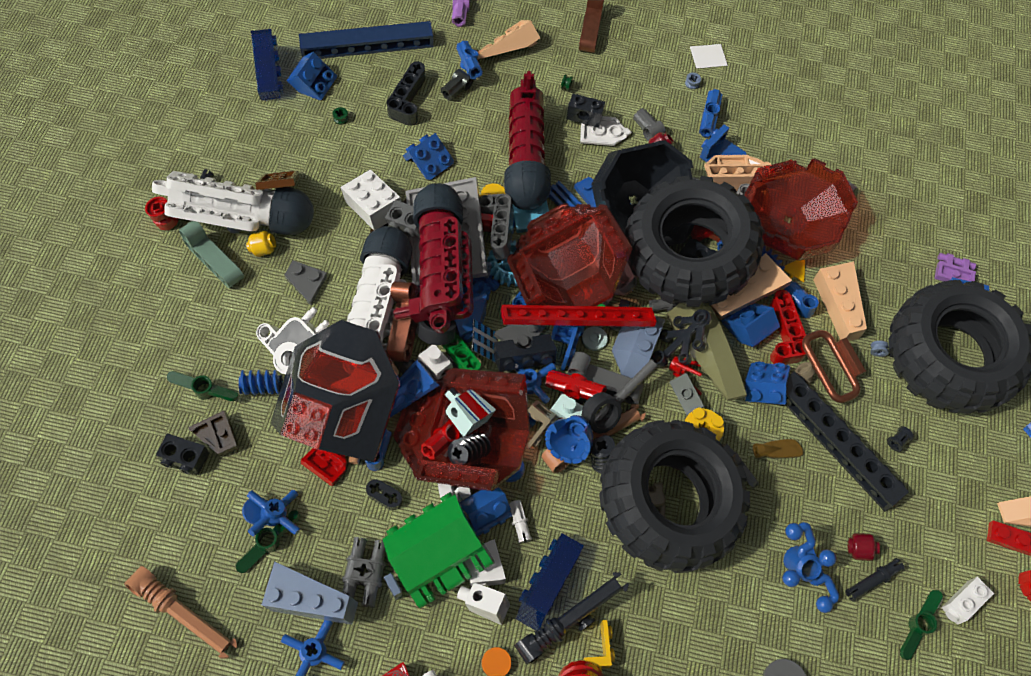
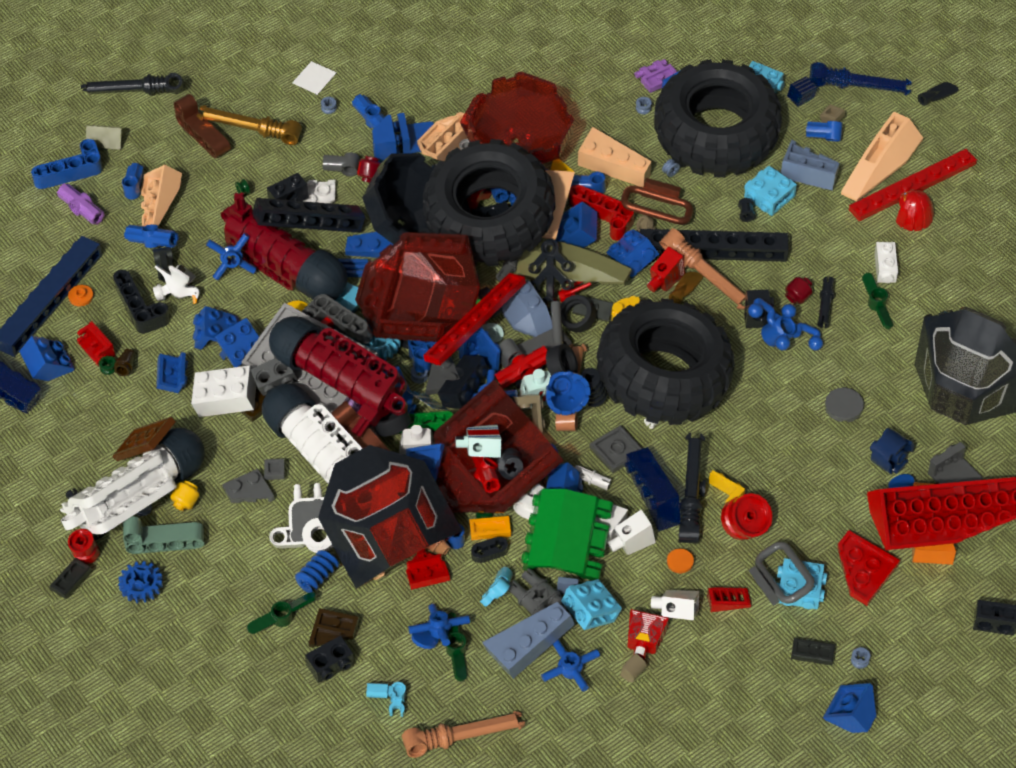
camera: 45 degrees left, 10 degrees down
(132, 226) = (70, 578): none -> pearl dark grey plate
(161, 271) = (141, 582): none -> blue gear
(188, 528) = (396, 691): none -> medium azure bar
(334, 284) = (274, 469): none -> dark grey plate
(345, 532) = (499, 587): none -> medium azure bar
(350, 123) = (124, 364): none -> dark brown cone
(352, 95) = (95, 343): none -> red hinge
(363, 156) = (171, 372): none -> blue bracket
(384, 622) = (591, 604): none -> medium azure brick
(387, 59) = (80, 295): none -> orange piece
(402, 475) = (490, 527): none -> light orange tile
(422, 173) = (237, 341): none -> blue bracket
(443, 103) = (176, 284): none -> white animal
(494, 117) = (229, 251): none -> blue bar
(504, 17) = (132, 181): none -> blue piece
(567, 517) = (613, 448): none -> dark grey tile
(568, 131) = (308, 215): none -> black brick
(632, 57) = (288, 131): none -> pearl gold piece
(664, 374) = (586, 322): none -> black tyre
(692, 134) = (384, 139): none -> blue slope
(774, 423) = (666, 270): none -> red torso
(805, 435) = (694, 259): none -> nougat piece
(817, 523) = (751, 295): none -> black brick
(917, 277) = (643, 109): none -> sand blue bush
(938, 442) = (770, 190): none -> medium azure brick
(993, 456) = (809, 168): none -> sand blue wedge

